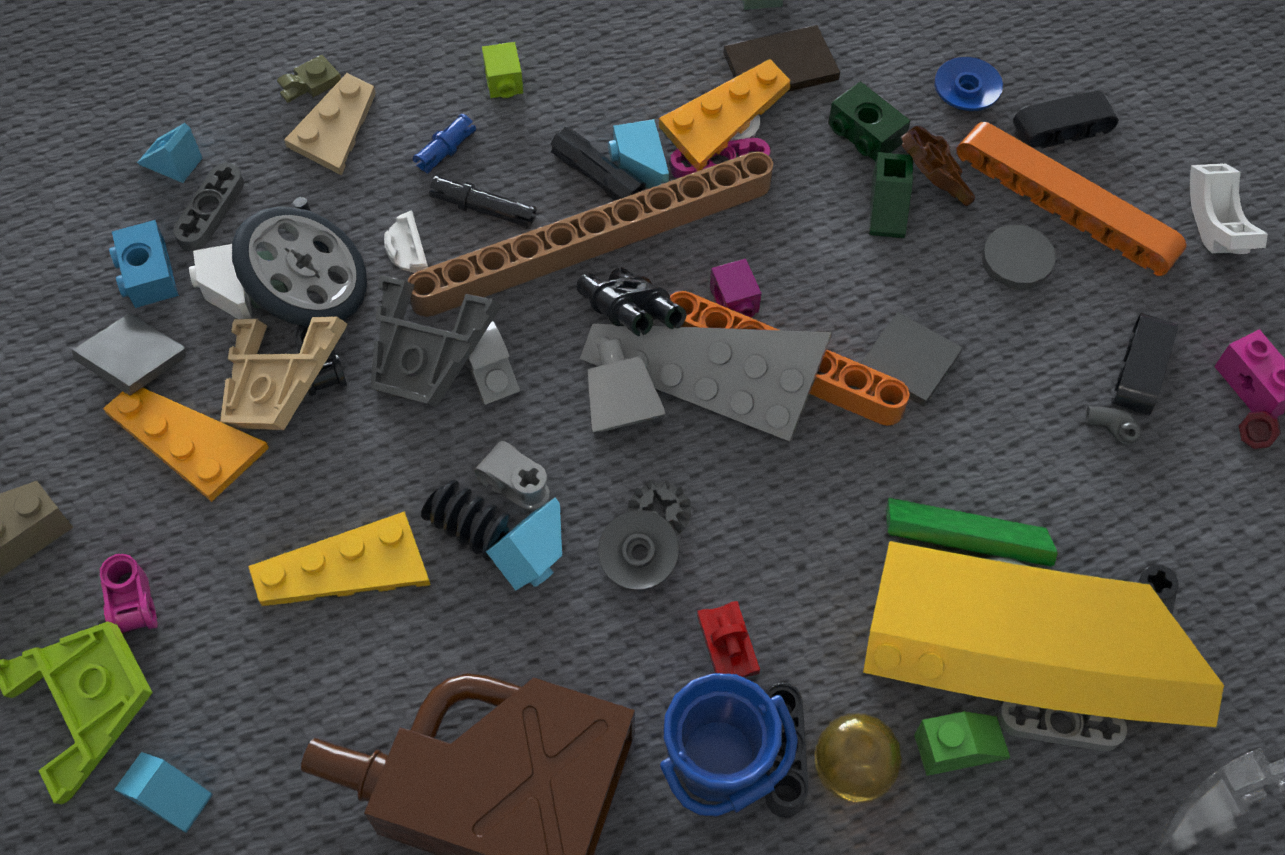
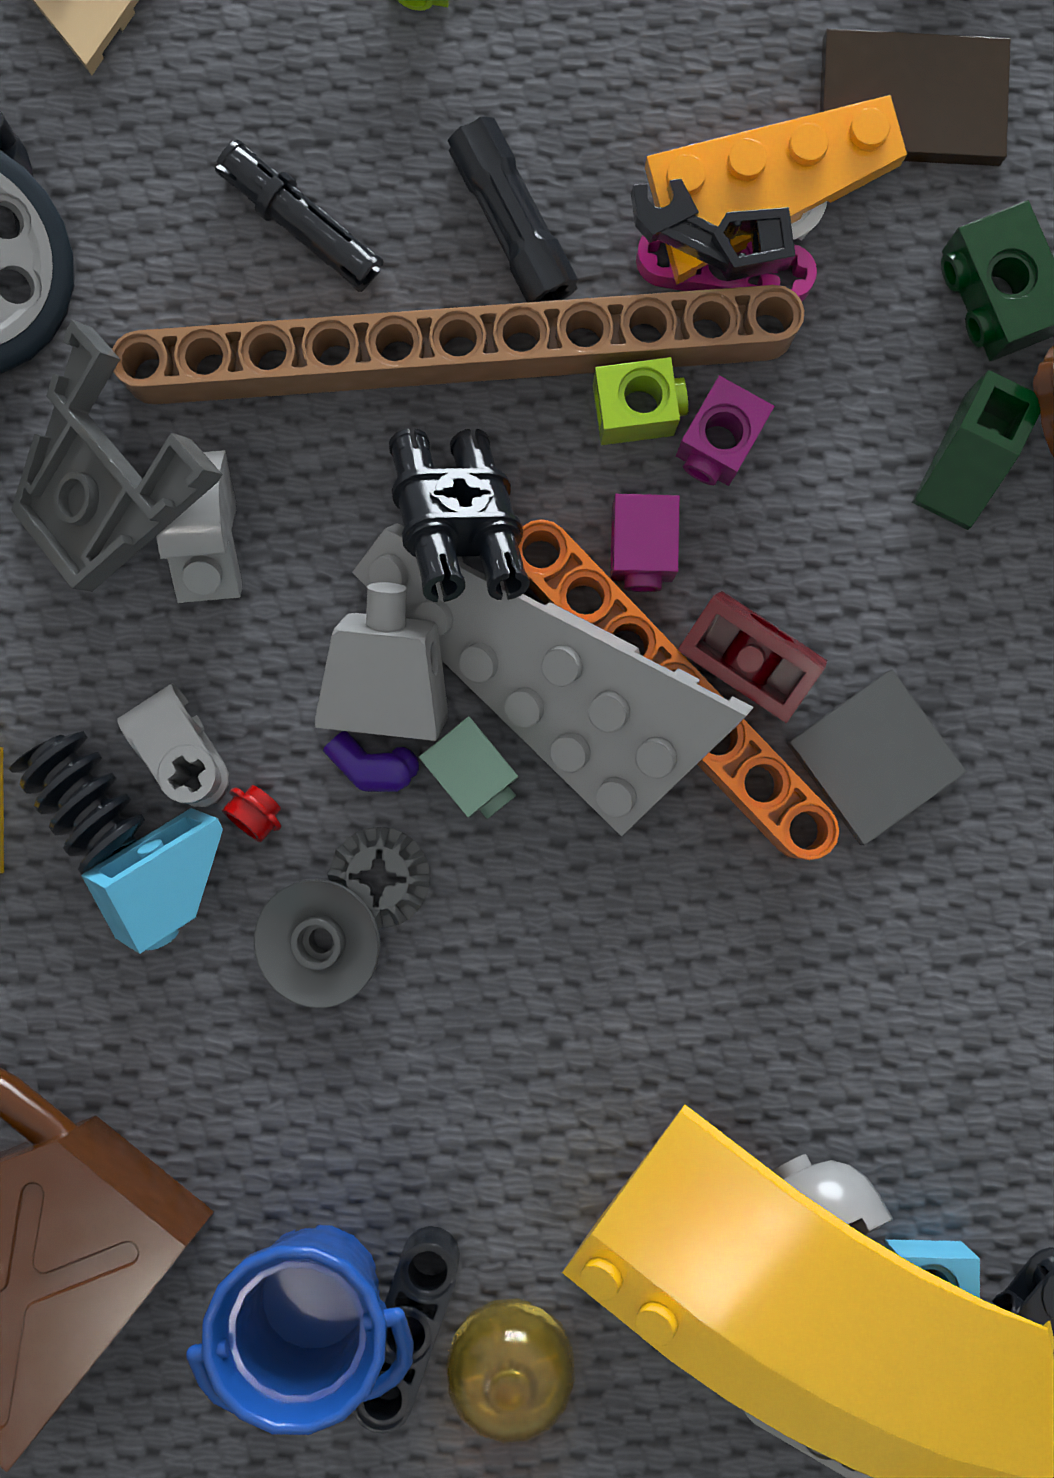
camera: 20 degrees right, 25 degrees up
(404, 244) = (149, 253): white tile -> none
(444, 143) = (276, 71): blue pin -> none
(572, 497) = (253, 812): none -> red plate
(632, 454) = (372, 771): none -> dark purple arm
(639, 150) = (591, 211): medium azure slope -> none
(689, 137) = (684, 230): none -> black piece
(689, 431) = (471, 770): none -> sand green brick
(702, 229) = (618, 421): none -> lime brick
(728, 640) = (389, 1142): red hips -> none
(754, 229) = (730, 408): none -> magenta brick
(822, 315) = (753, 656): none -> dark red brick
(960, 742) = (660, 1413): bright green slope -> none
(970, 532) = (824, 1106): green tile -> none

